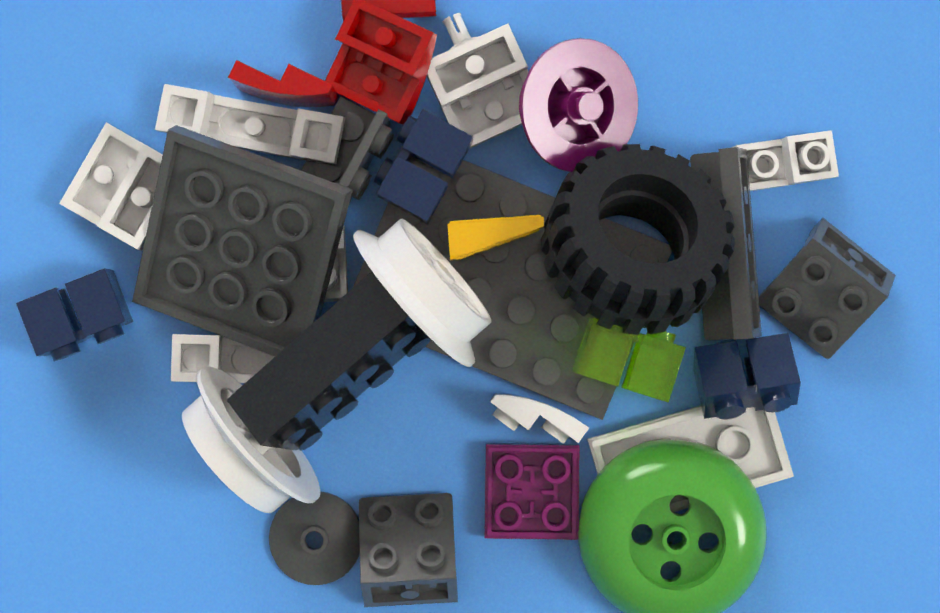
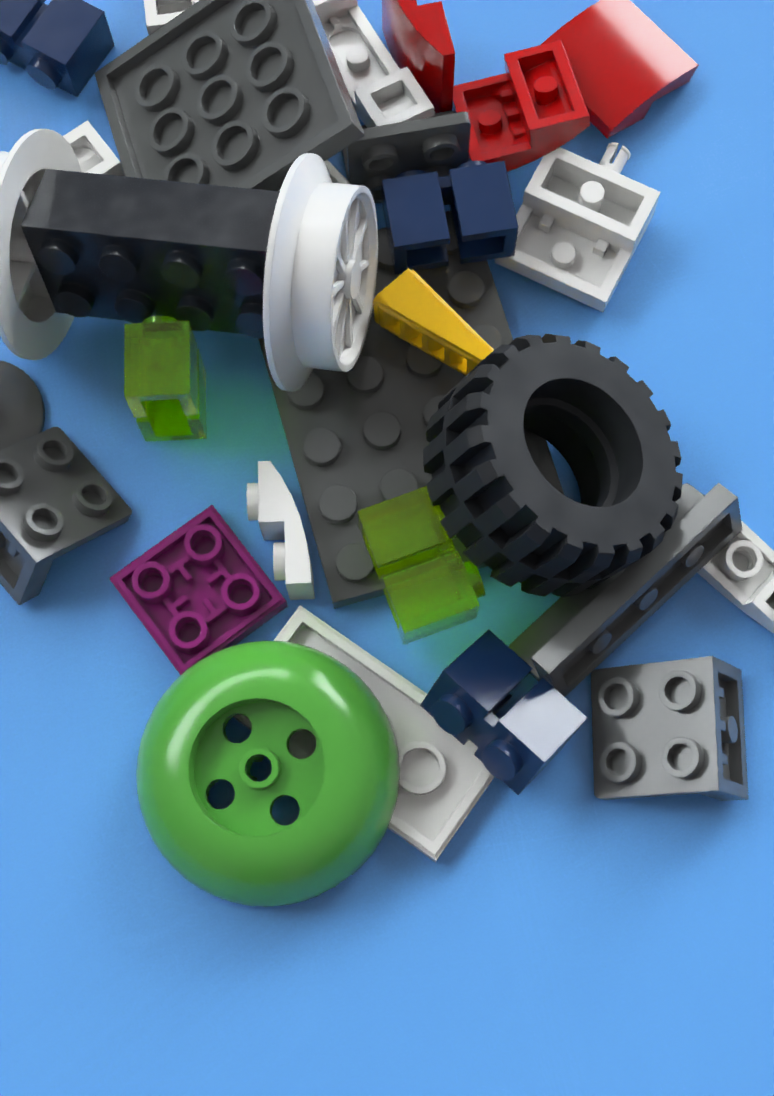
camera: 60 degrees right, 15 degrees down
(394, 417) = (165, 379): none -> clear neon green piece
(577, 102) = (647, 302): wheel -> none

